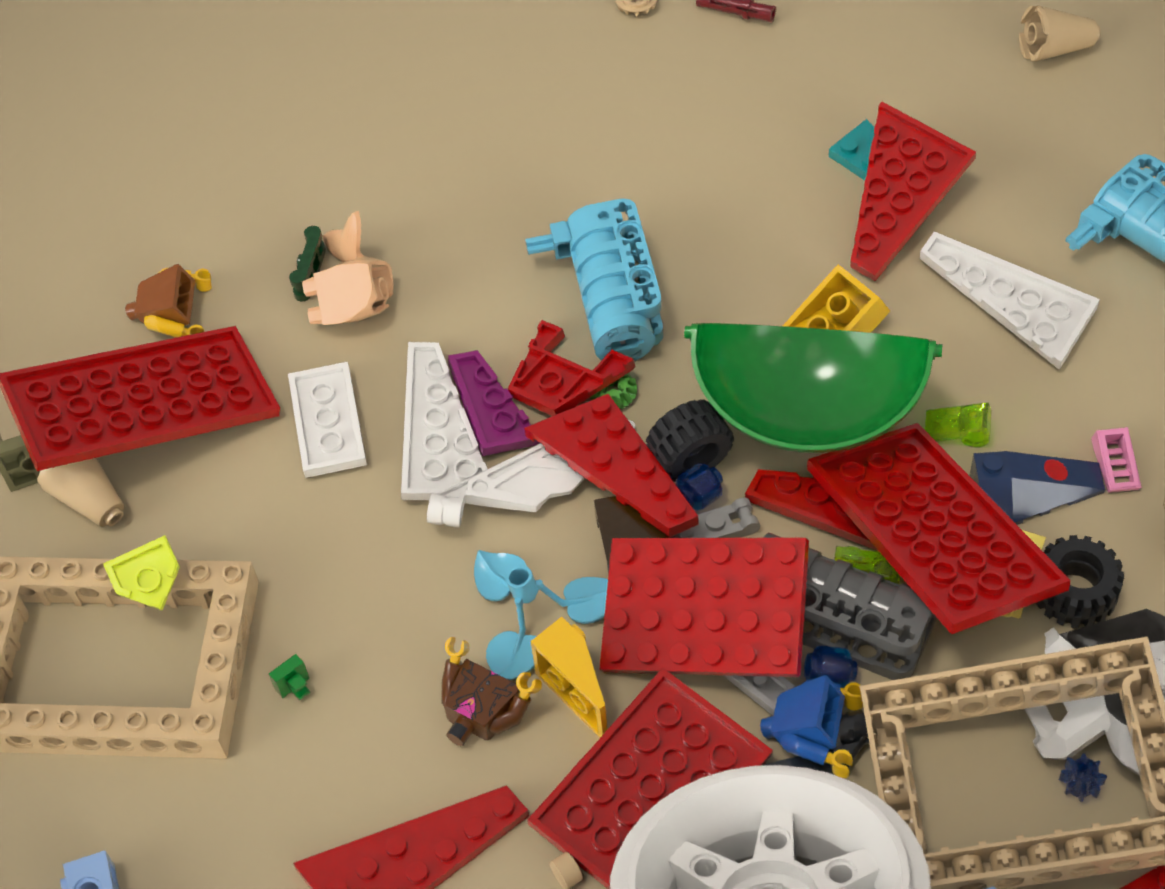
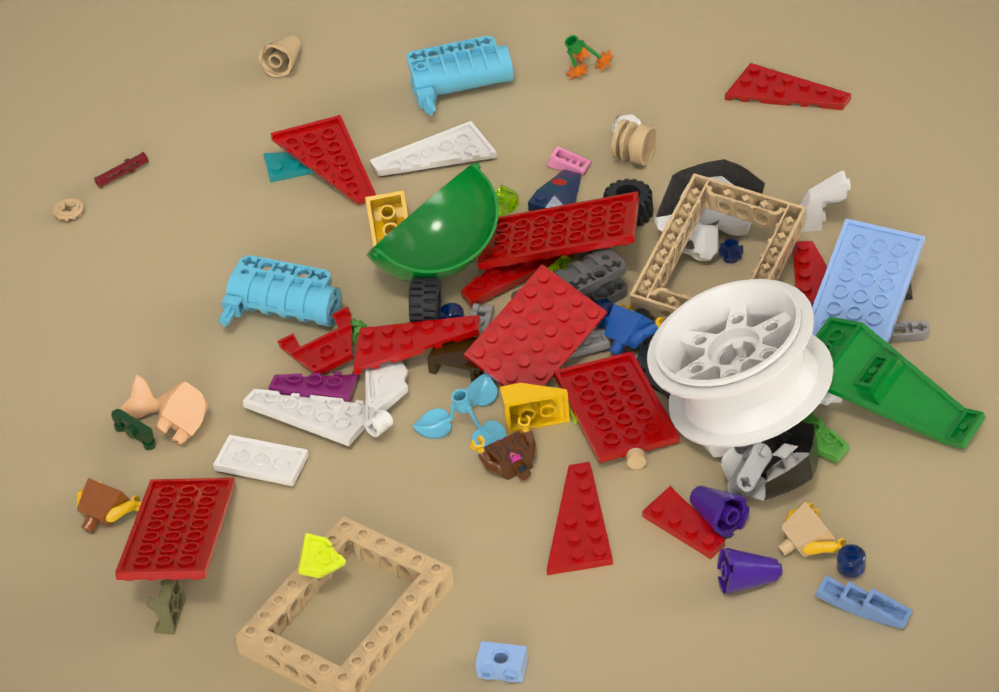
camera: 60 degrees left, 10 degrees down
(85, 490) = (217, 586): tan cone -> none
(291, 677) = (431, 532): green tile -> none

